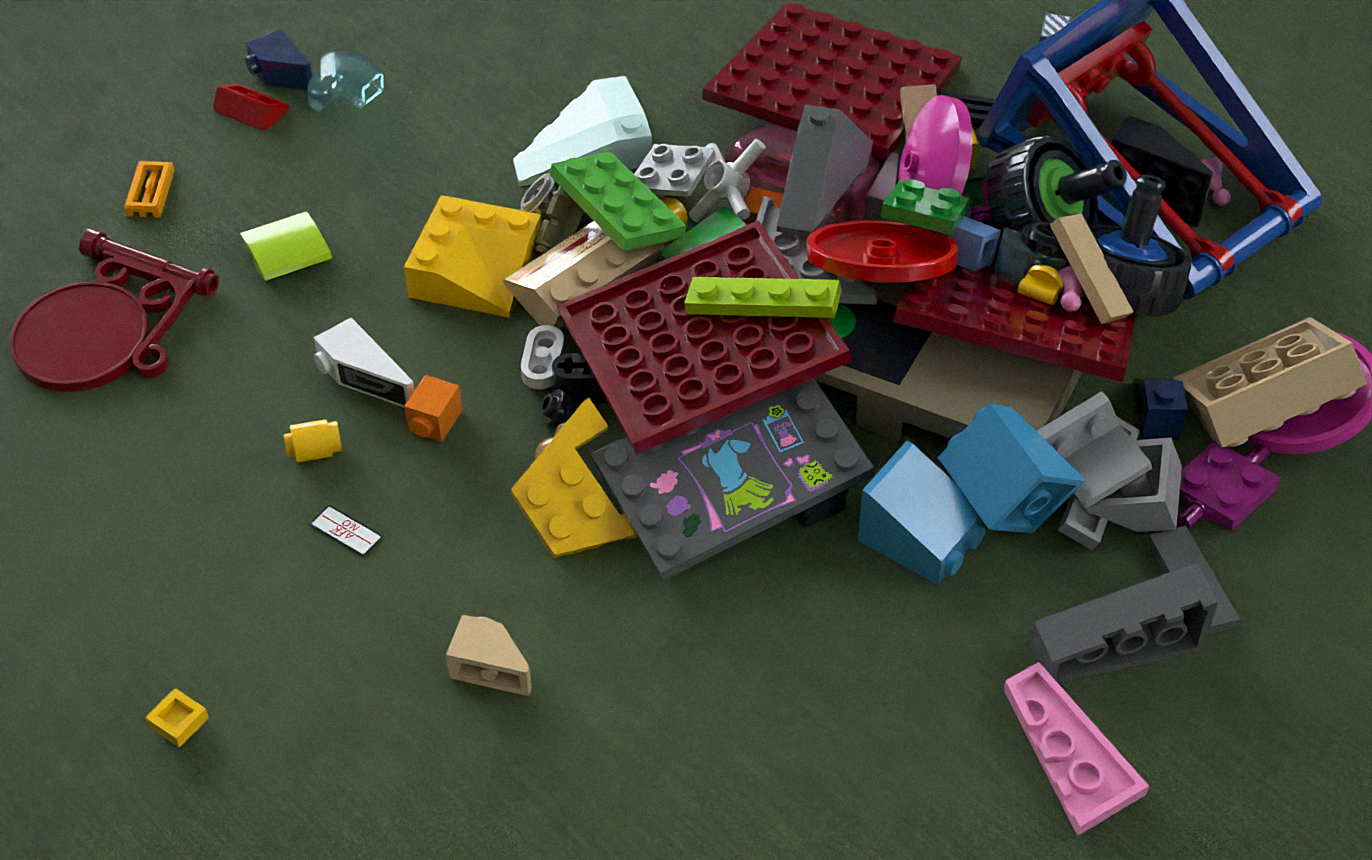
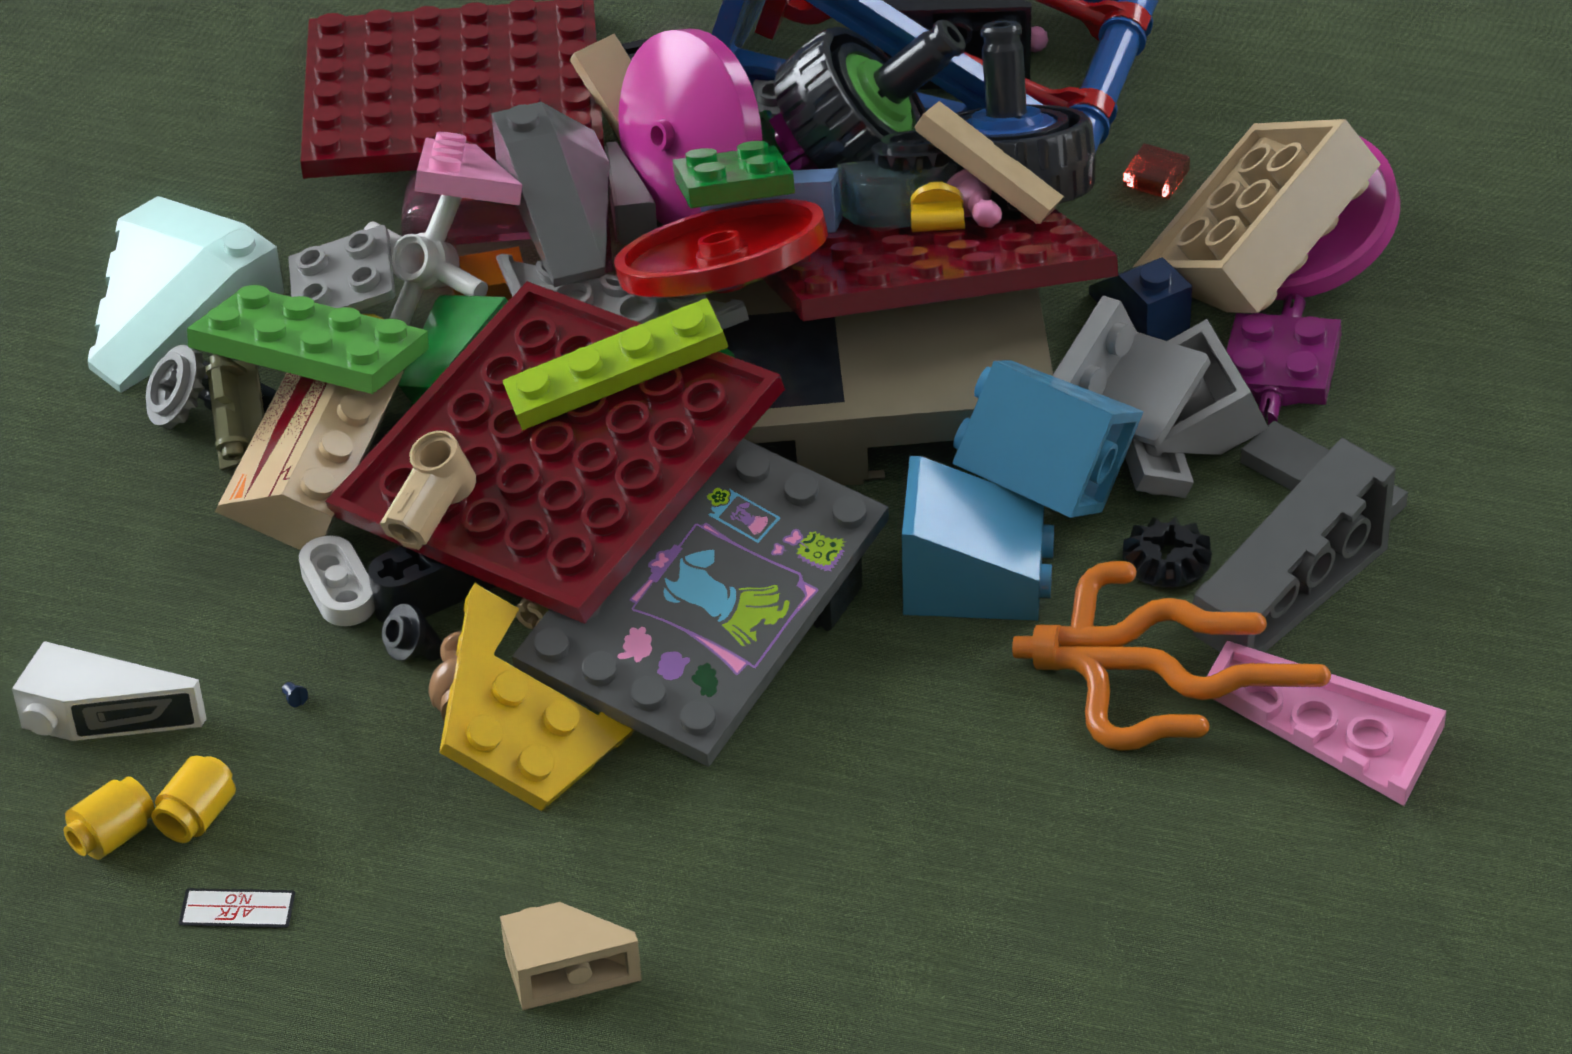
camera: 30 degrees left, 5 degrees down
(365, 451) = (193, 798): none -> yellow brick
(433, 408) = (243, 705): orange brick -> none
(469, 254) = (143, 498): yellow slope -> none
(471, 415) = (295, 694): none -> dark blue piece
(614, 321) = (437, 481): none -> tan piece
(768, 133) = (464, 171): none -> bright pink wing
(947, 624) = (1098, 648): none -> orange plant
(1052, 595) = (1182, 567): none -> black gear
(1236, 320) = (1156, 171): none -> clear red tile

